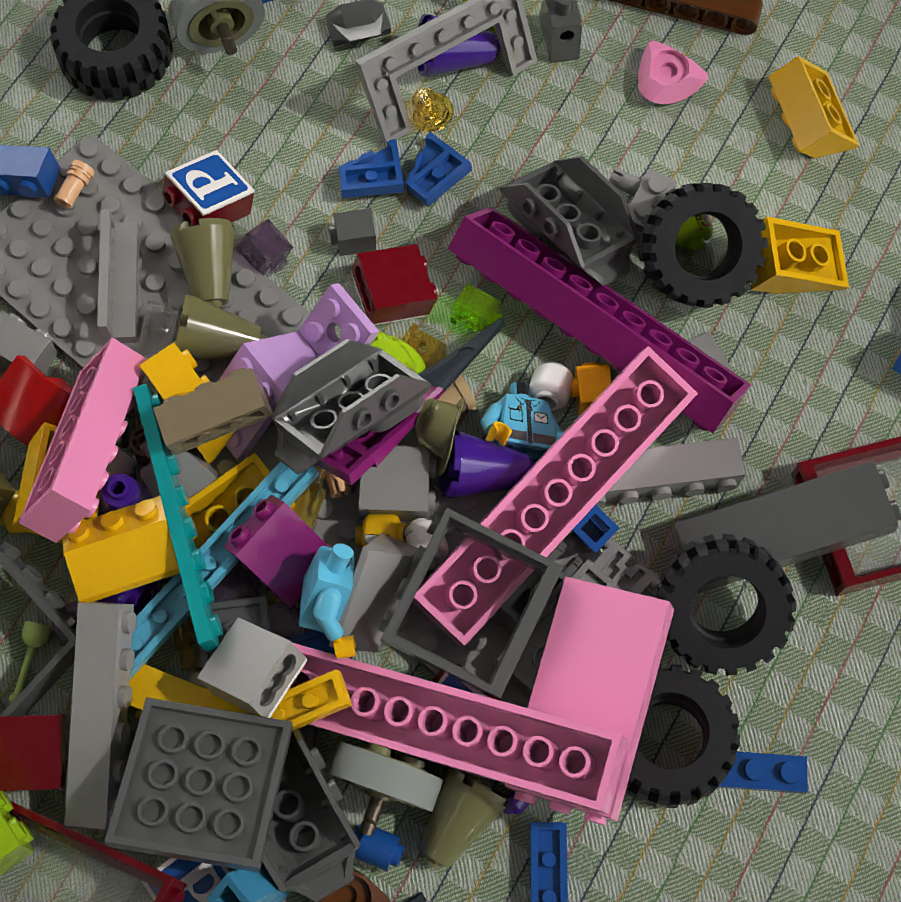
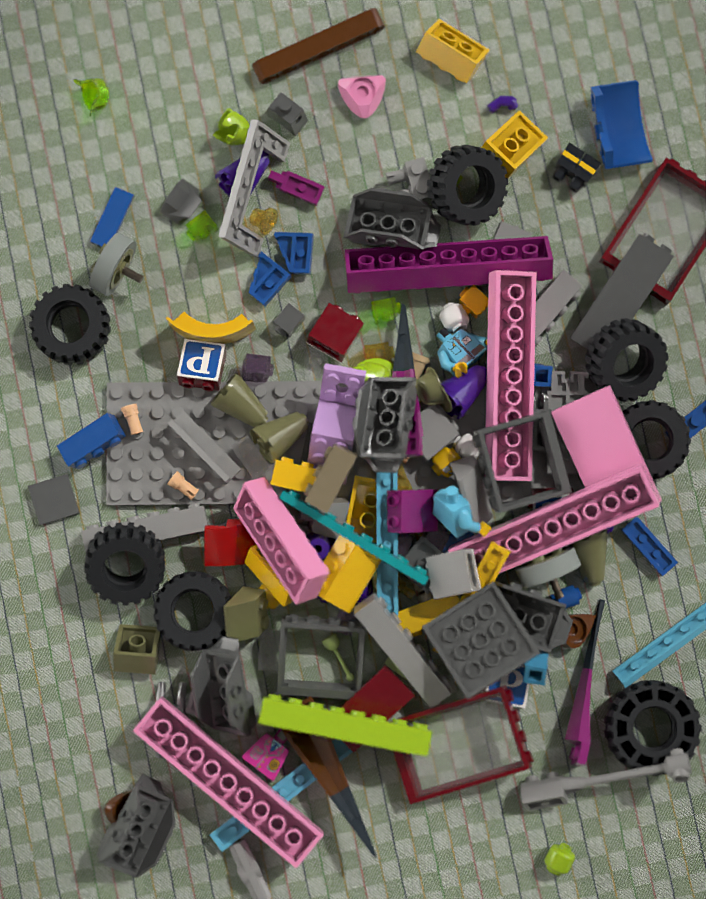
camera: 40 degrees left, 15 degrees up
(51, 293) = (179, 482): none -> light nougat pin
(279, 189) = (215, 333): none -> yellow panel
(344, 59) = (200, 227): none -> clear neon green brick
(502, 108) = (297, 186): none -> magenta hinge
(825, 205) = (502, 100): none -> dark purple arm
(857, 342) = (580, 175): none -> black hips

